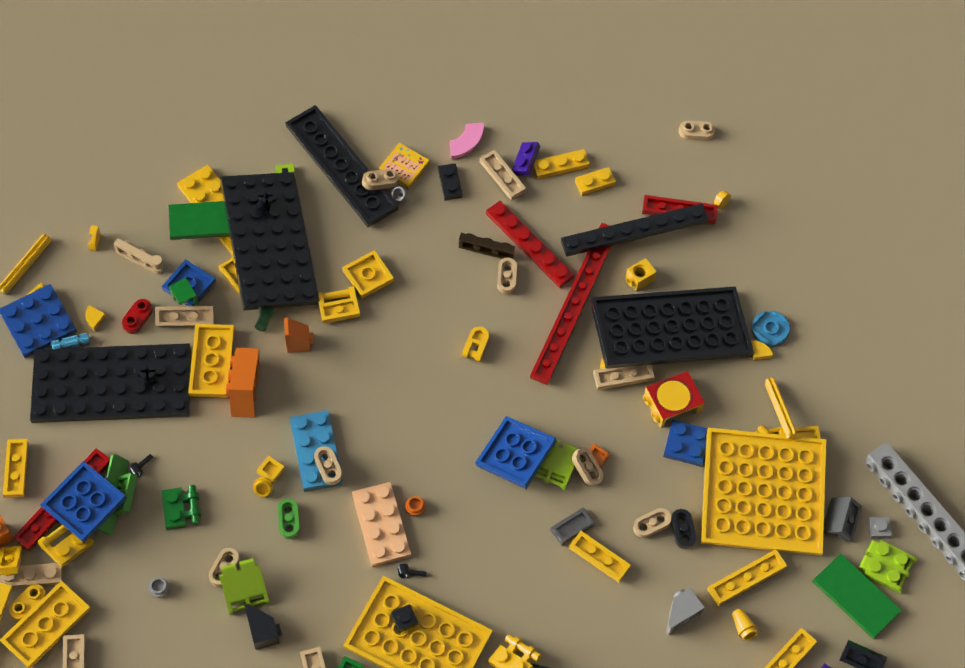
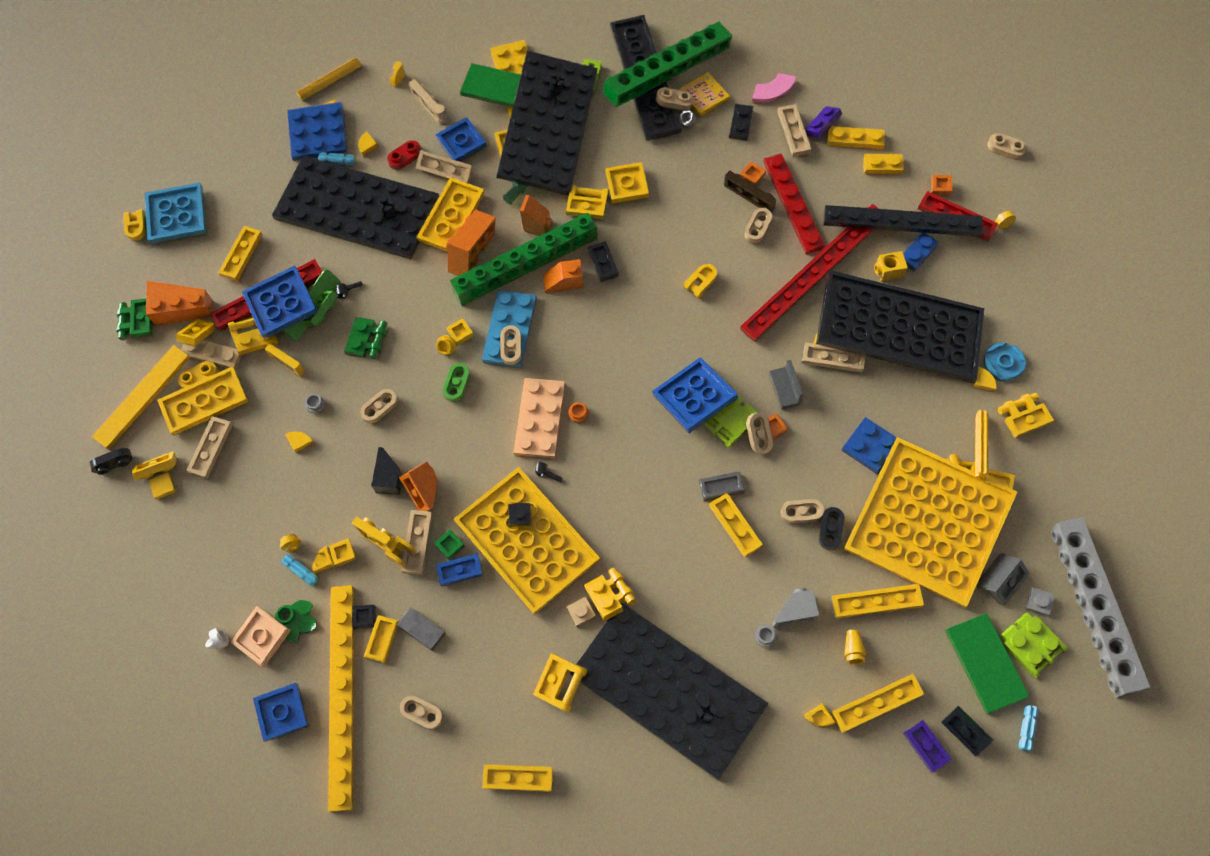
camera: 30 degrees right, 5 degrees up
(111, 556) = (285, 360): none -> yellow tile
(159, 628) = (298, 440): none -> yellow tile
(183, 292) = (449, 143): green panel -> none
(243, 585) = (386, 428): lime plate -> none
(300, 626) = (421, 486): none -> orange slope
(302, 380) = (524, 259): none -> green brick
(347, 383) = (564, 276): none -> orange slope
(359, 148) = (666, 64): none -> green brick
(378, 357) = (603, 261): none -> black plate
(482, 227) = (753, 173): none -> orange plate
(593, 415) = (786, 386): none -> dark grey panel
(654, 185) = (941, 185): none -> orange plate
(659, 252) = (919, 251): none -> blue plate
(665, 643) = (765, 635): none -> light grey plate
(673, 397) = (874, 395): panel -> none
(810, 373) = (1027, 420): none -> yellow plate
(911, 637) = (1028, 728): none -> medium azure axle

